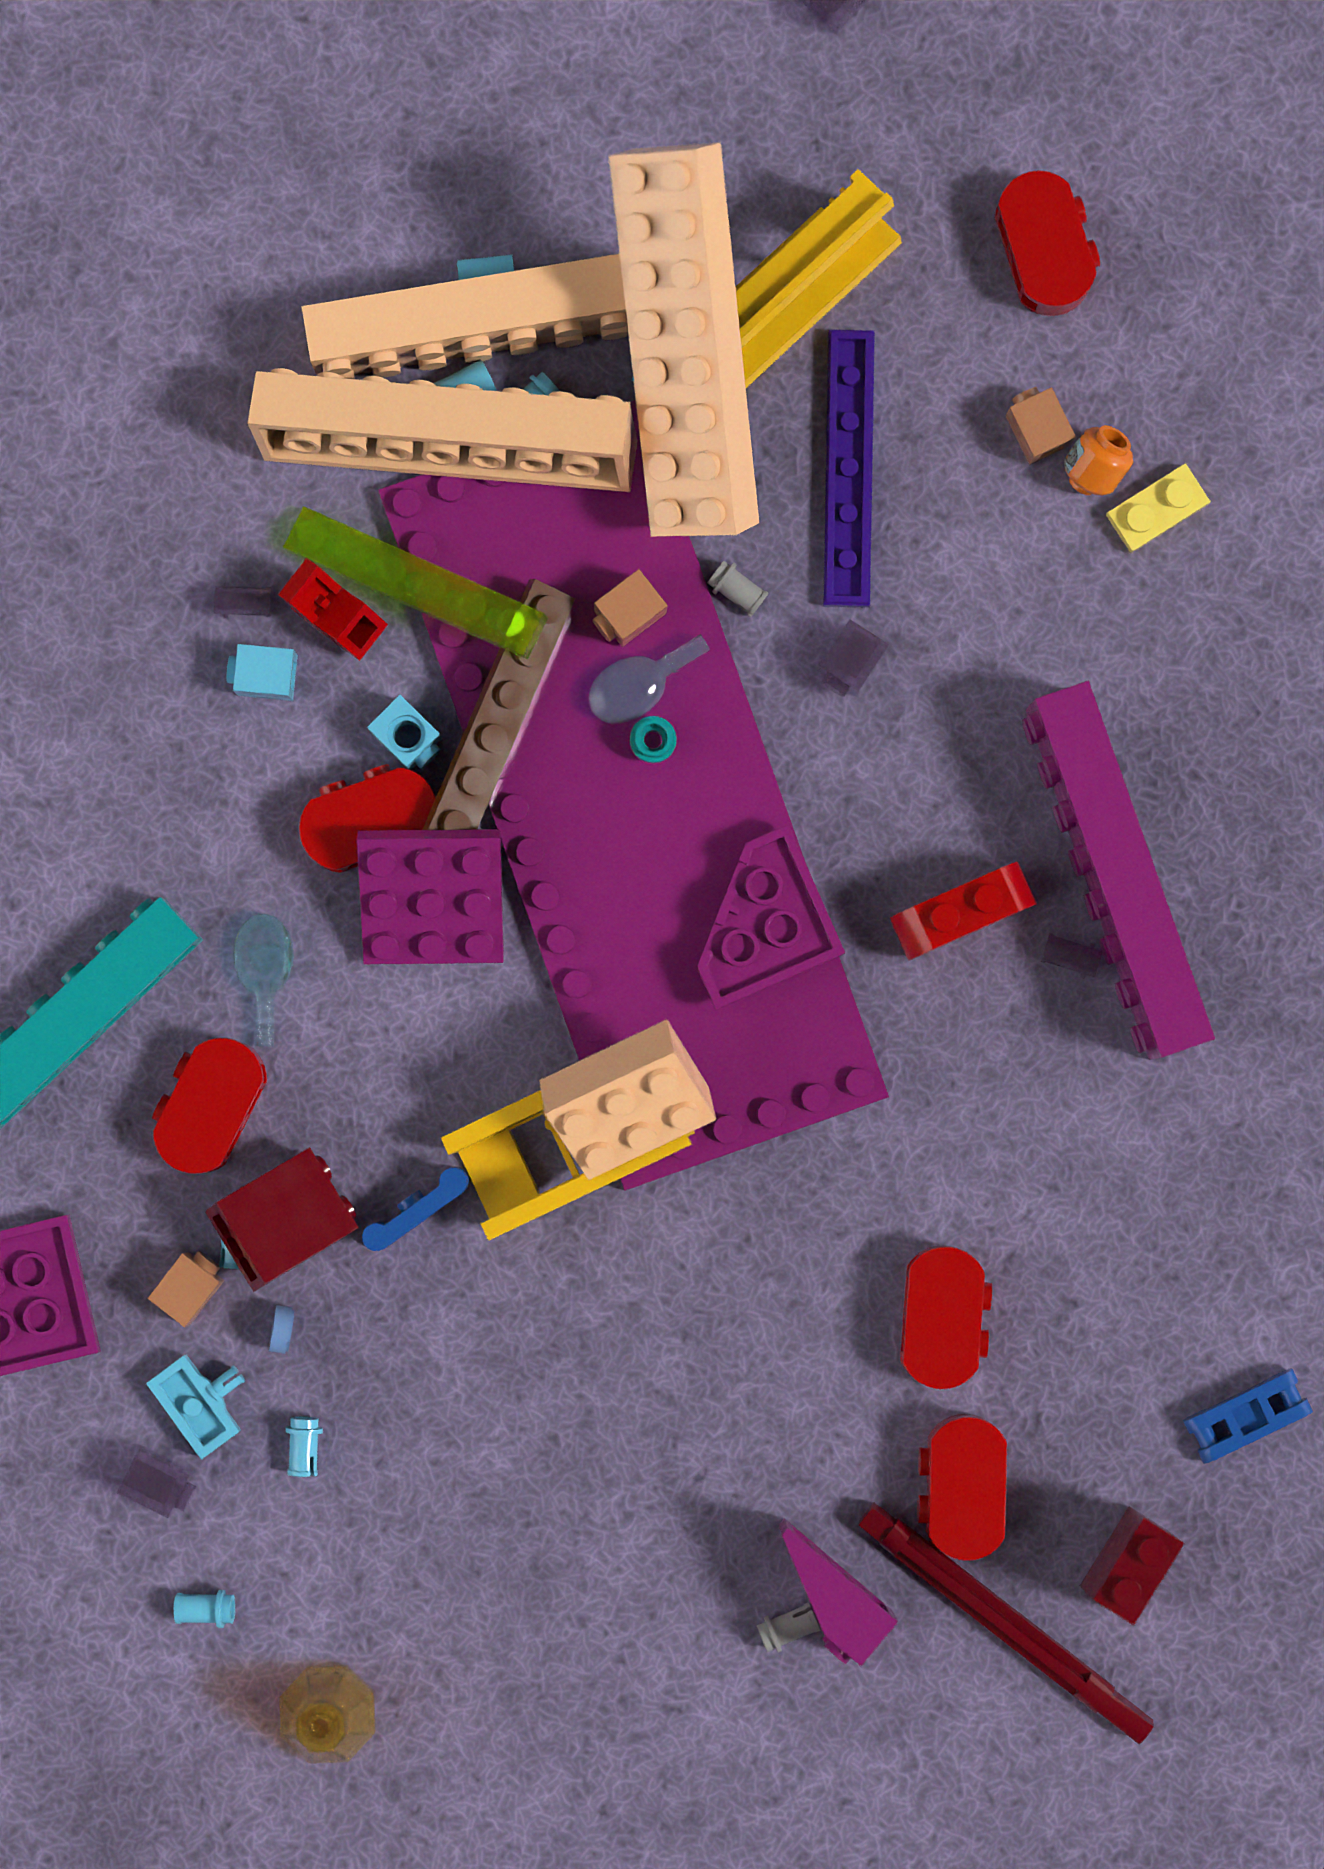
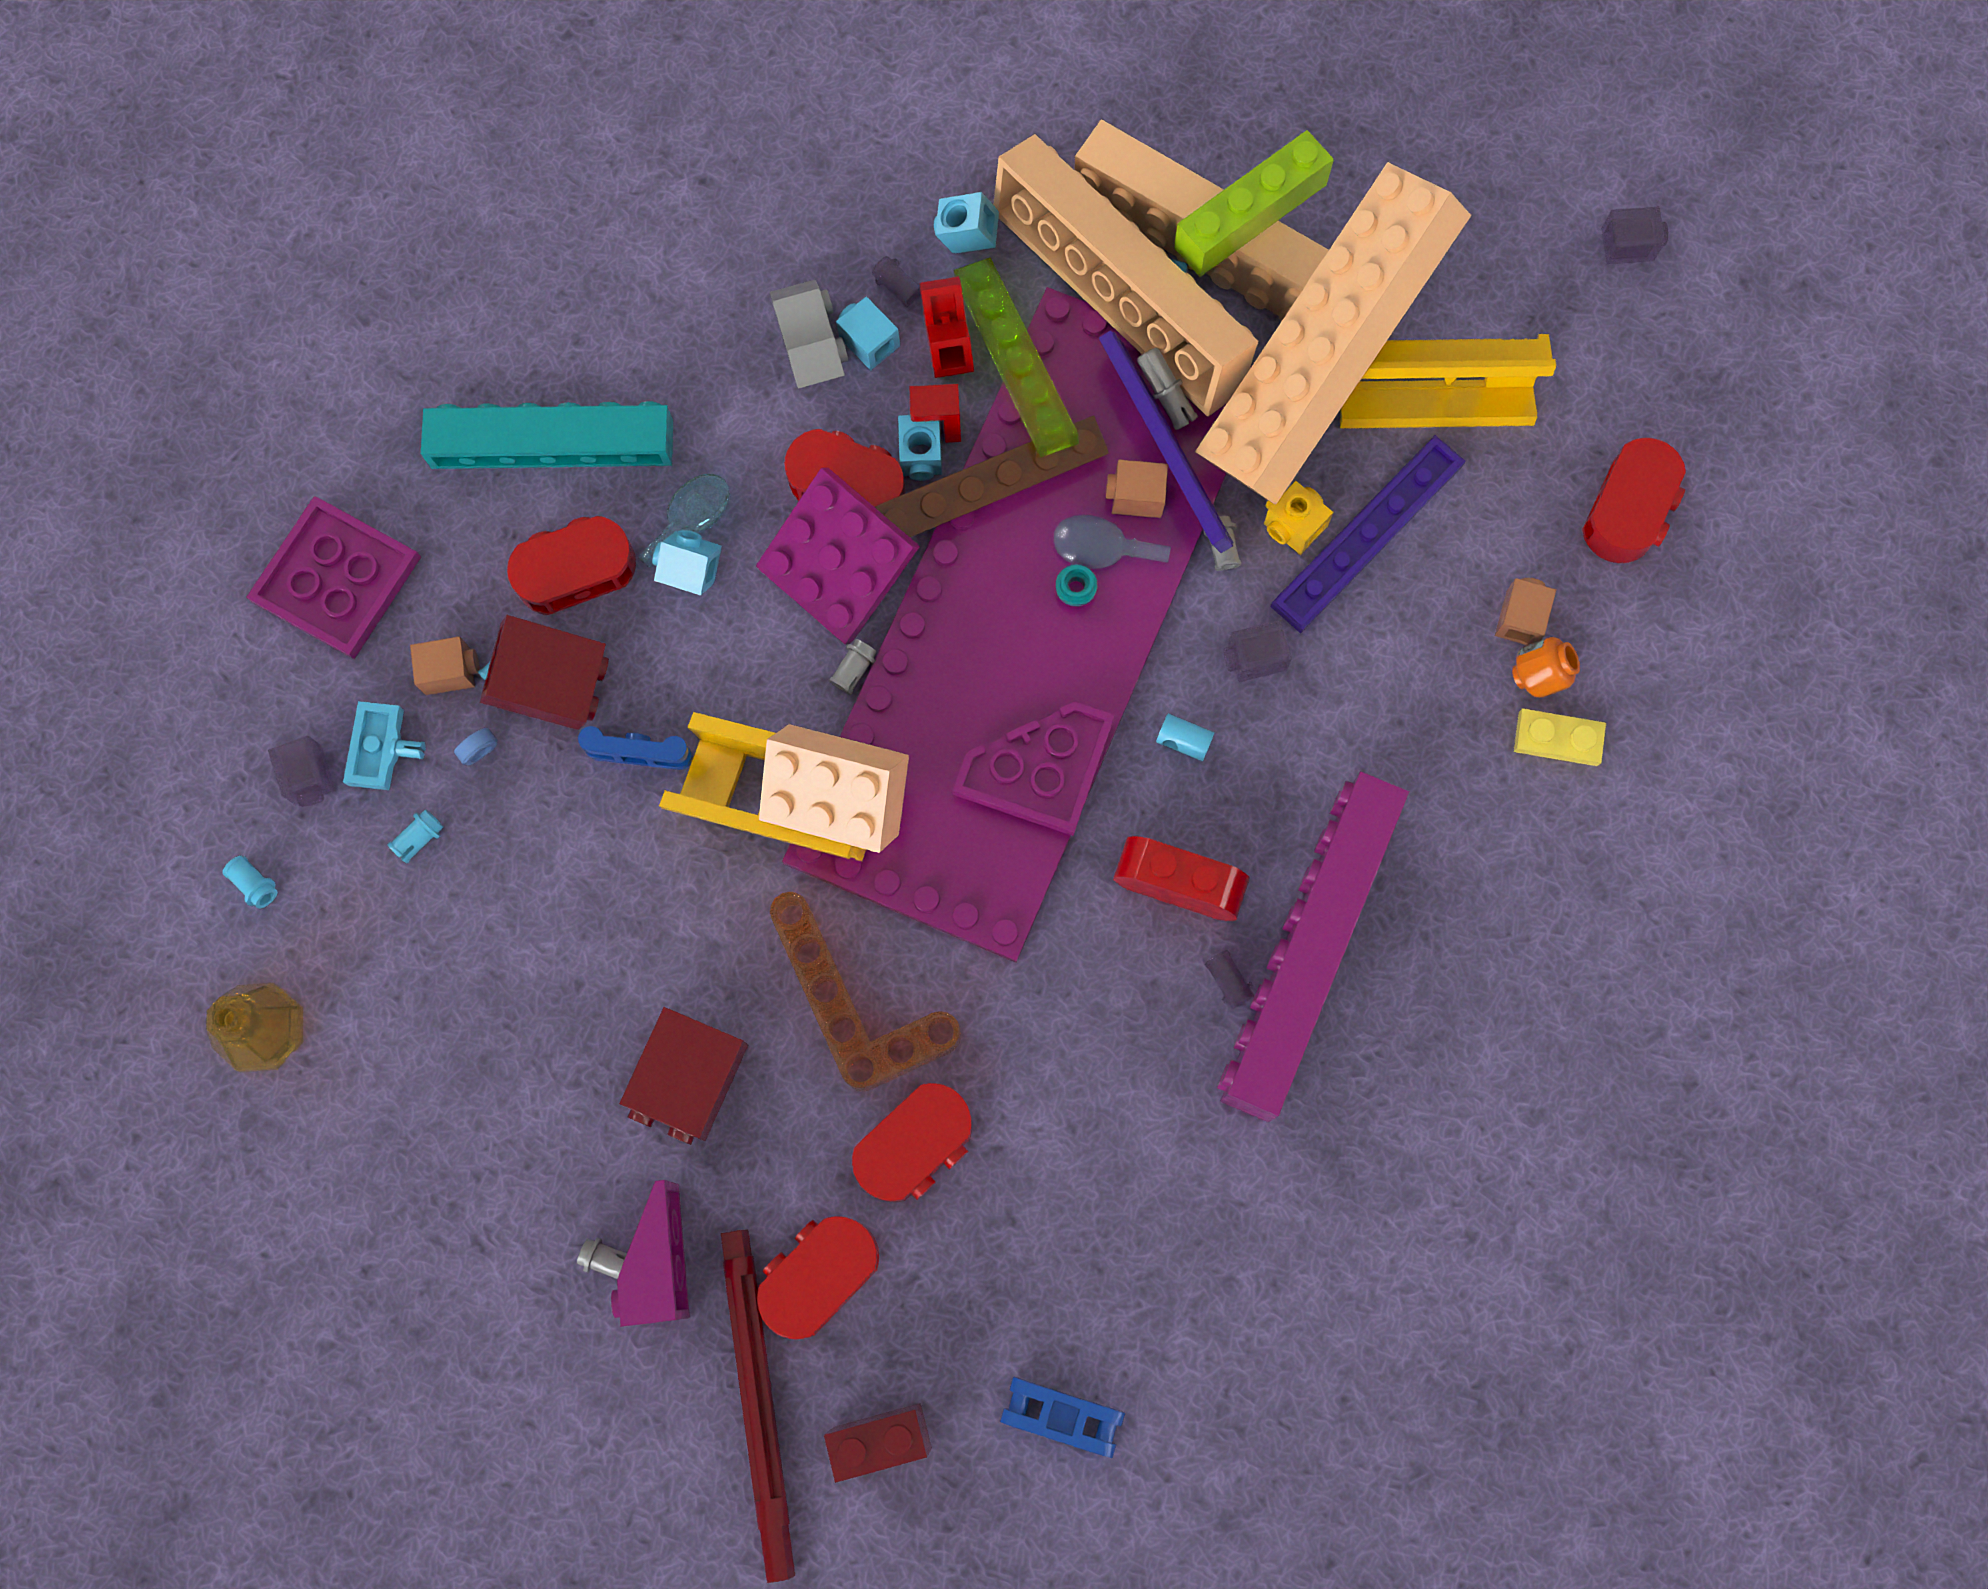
camera: 50 degrees right, 10 degrees down
(213, 720) = (808, 334): none -> light grey brick
(274, 494) = (966, 223): none -> medium azure brick
(306, 1015) = (686, 561): none -> brick
(389, 688) = (937, 404): none -> red panel
(511, 276) = (1253, 203): none -> lime brick
(528, 975) = (853, 666): none -> light grey pin
(574, 498) = (1166, 388): none -> light grey axle
(616, 546) = (1166, 442): none -> dark purple tile
(712, 1433) = (683, 1076): none -> dark red brick
(787, 1261) = (842, 1007): none -> clear orange beam
(794, 501) = (1297, 517): none -> yellow brick
(857, 786) = (1185, 737): none -> medium azure piece

